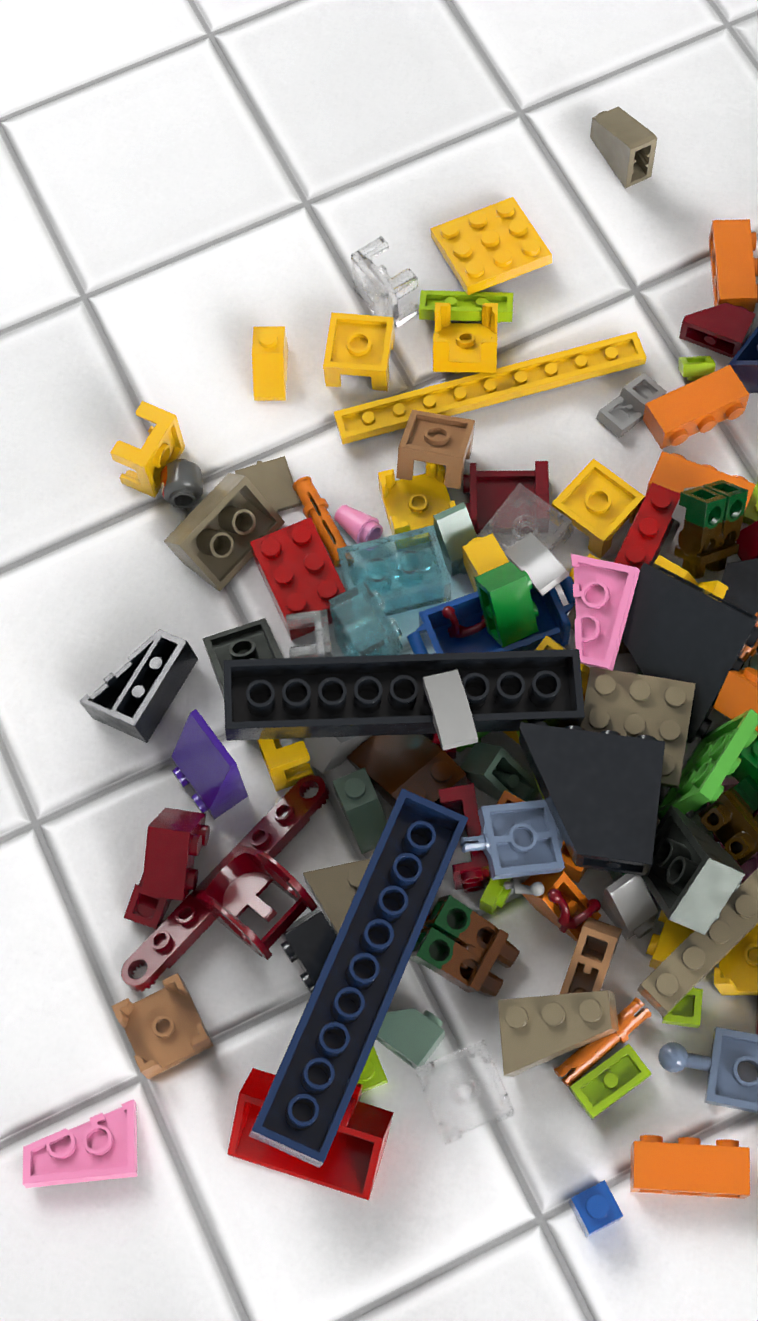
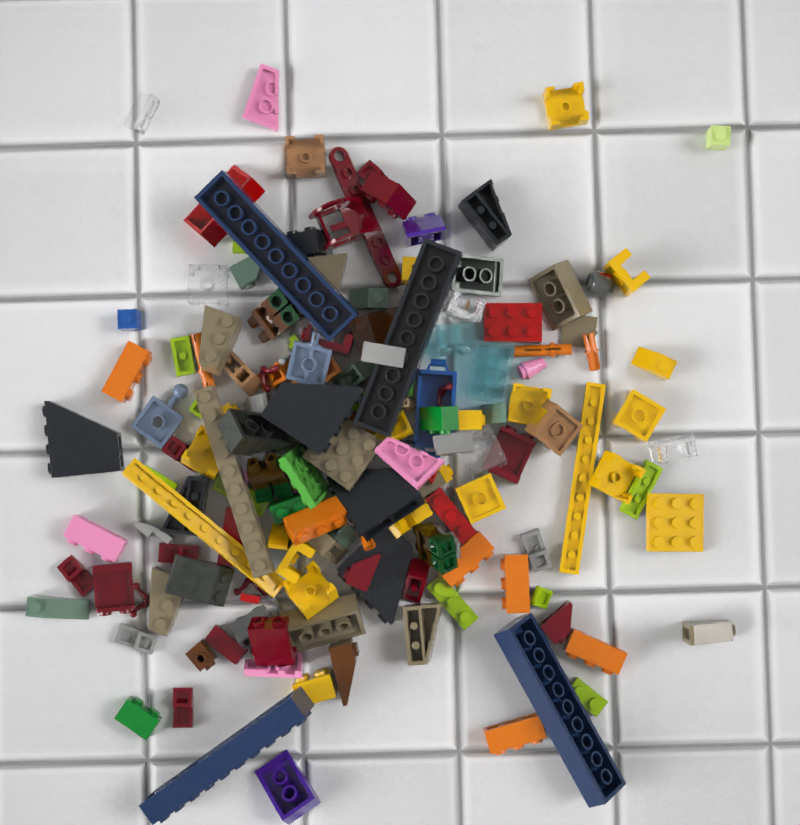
camera: 110 degrees right, 20 degrees up
(291, 453) = (591, 351): none -> orange axle

